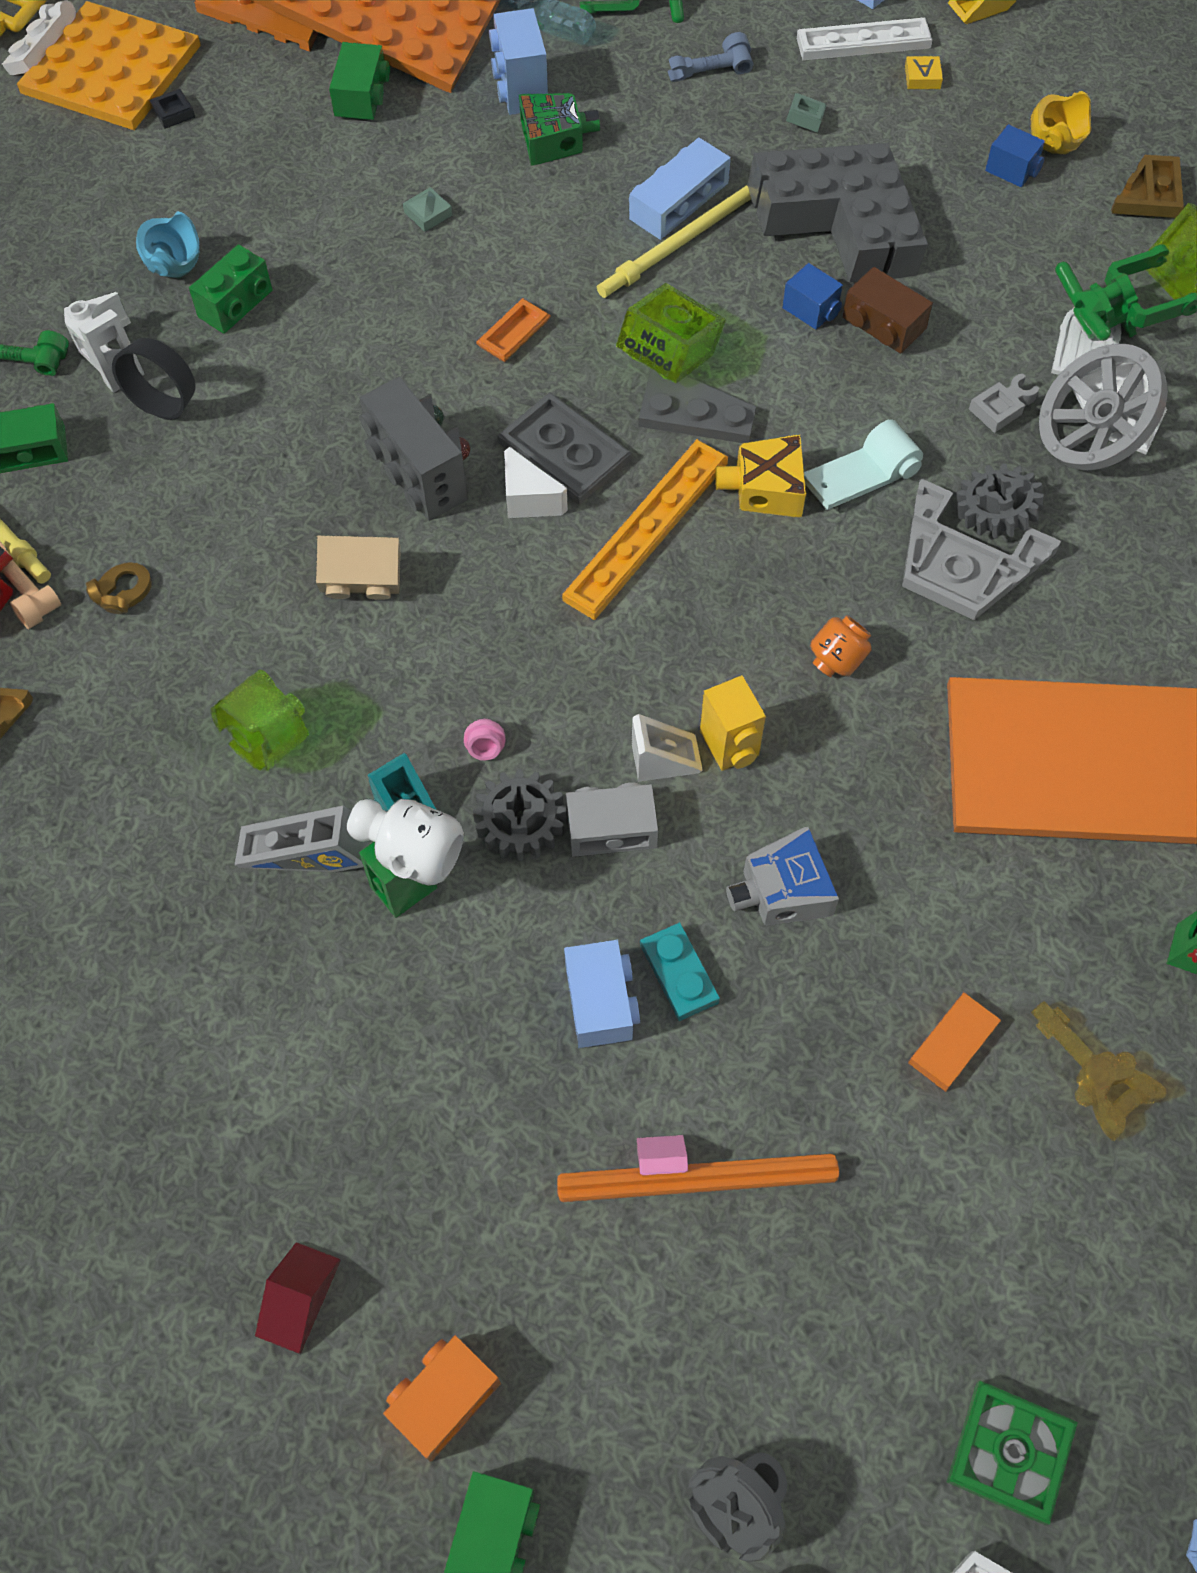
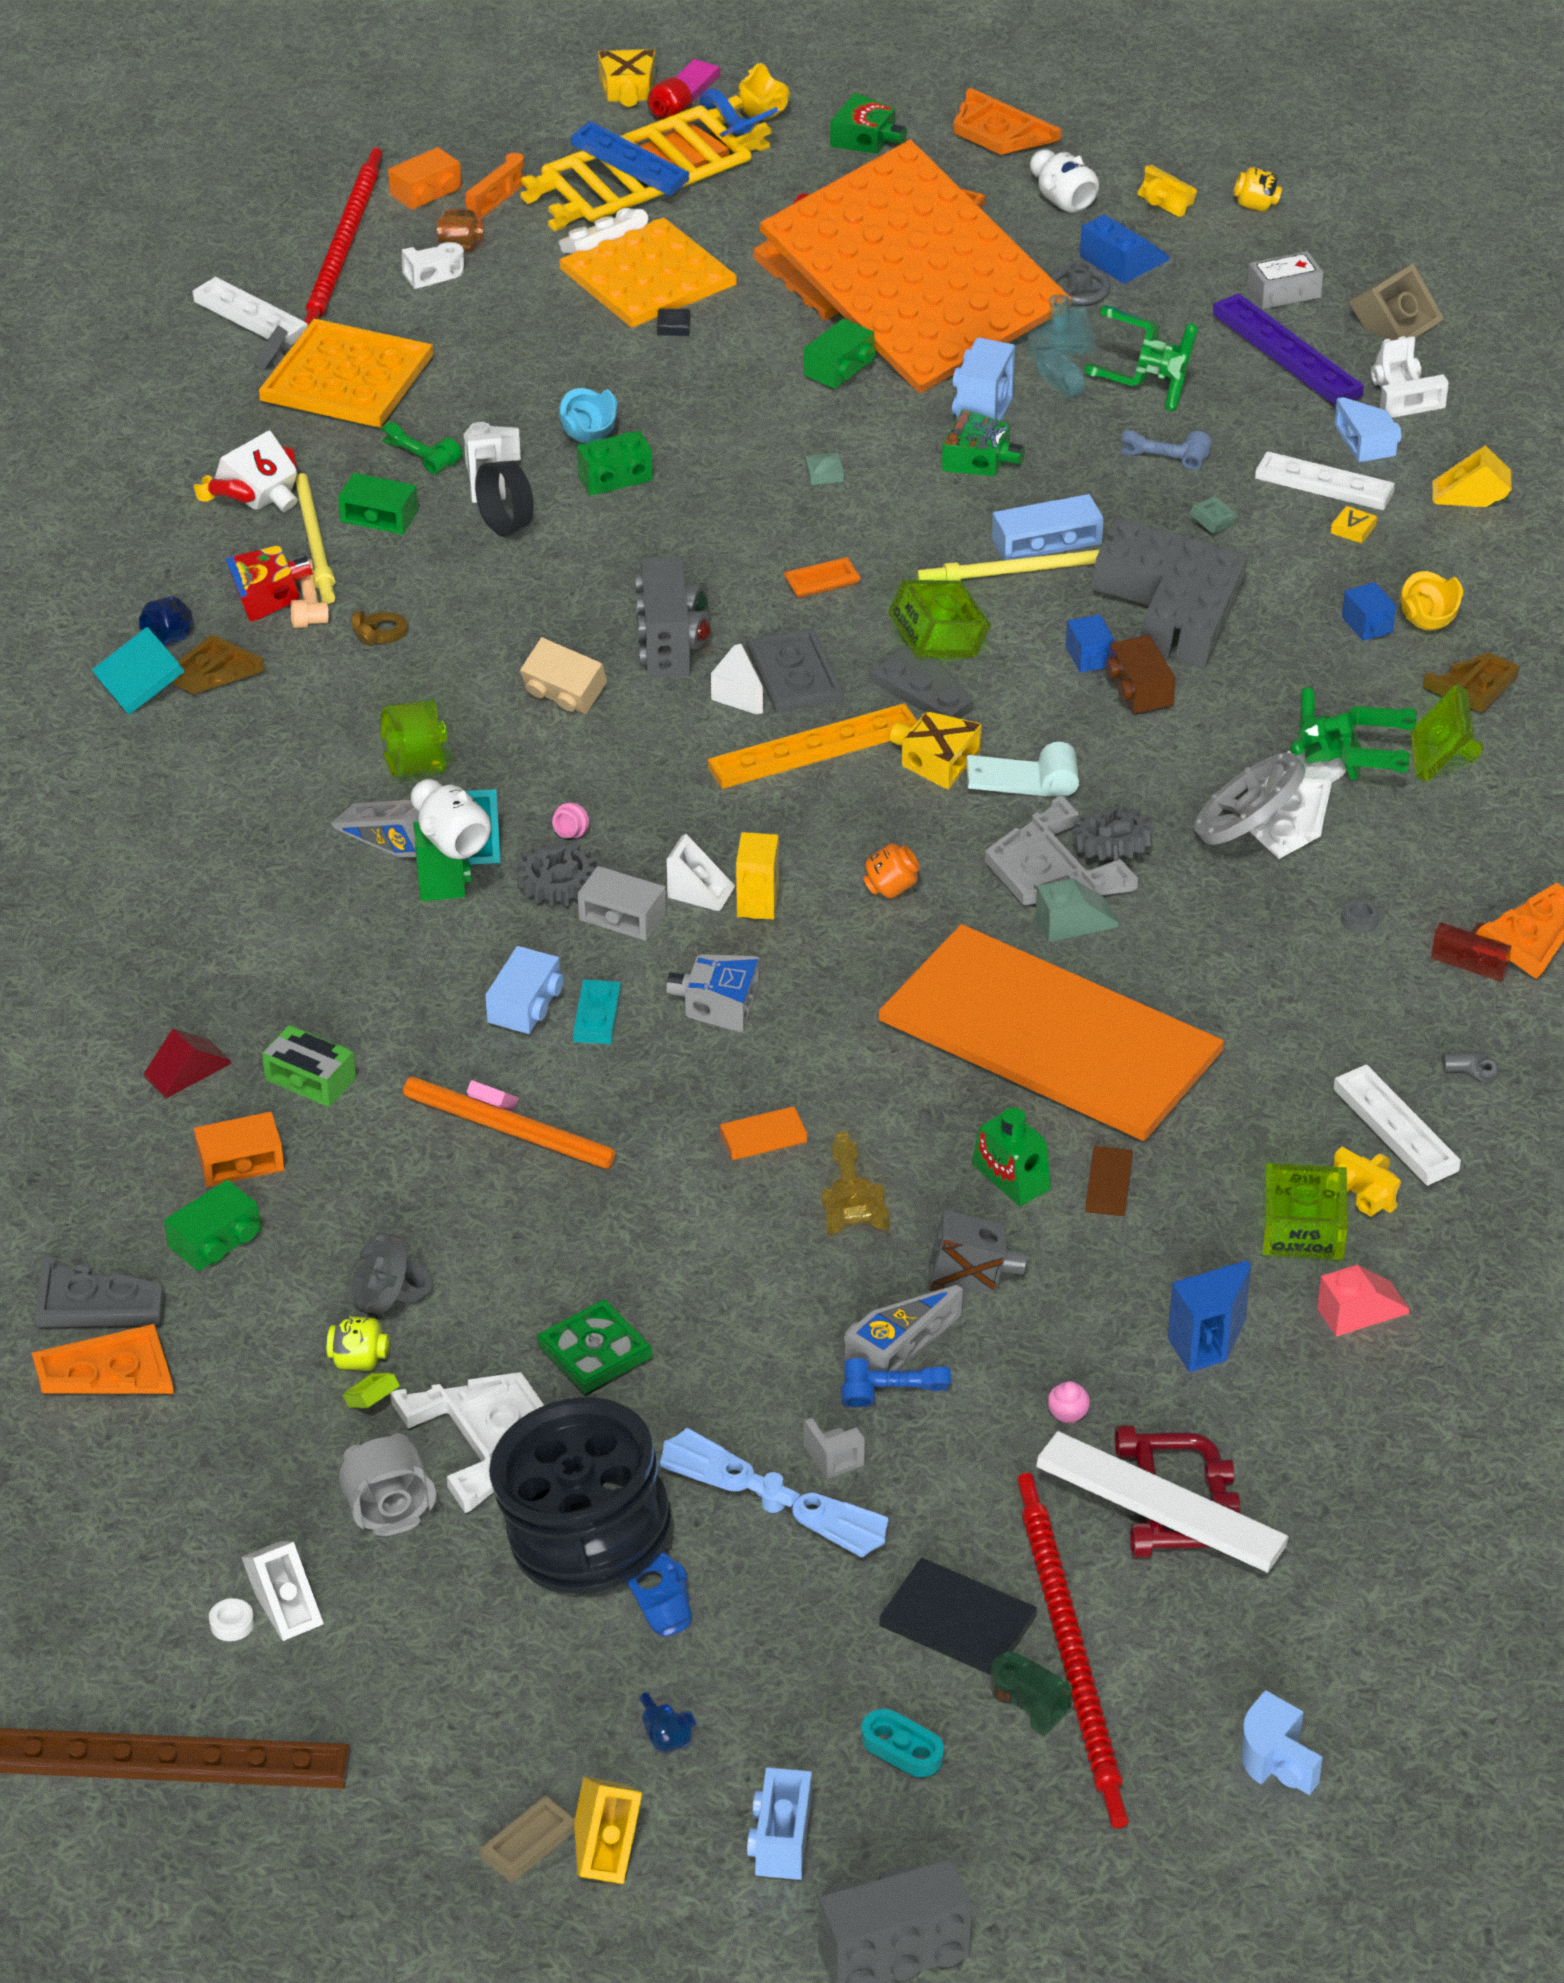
camera: 30 degrees right, 20 degrees down
(439, 1224) = (309, 1065): none -> brick
(1002, 405) = (1184, 777): light grey plate -> none
(1029, 610) = (1071, 910): none -> sand green slope

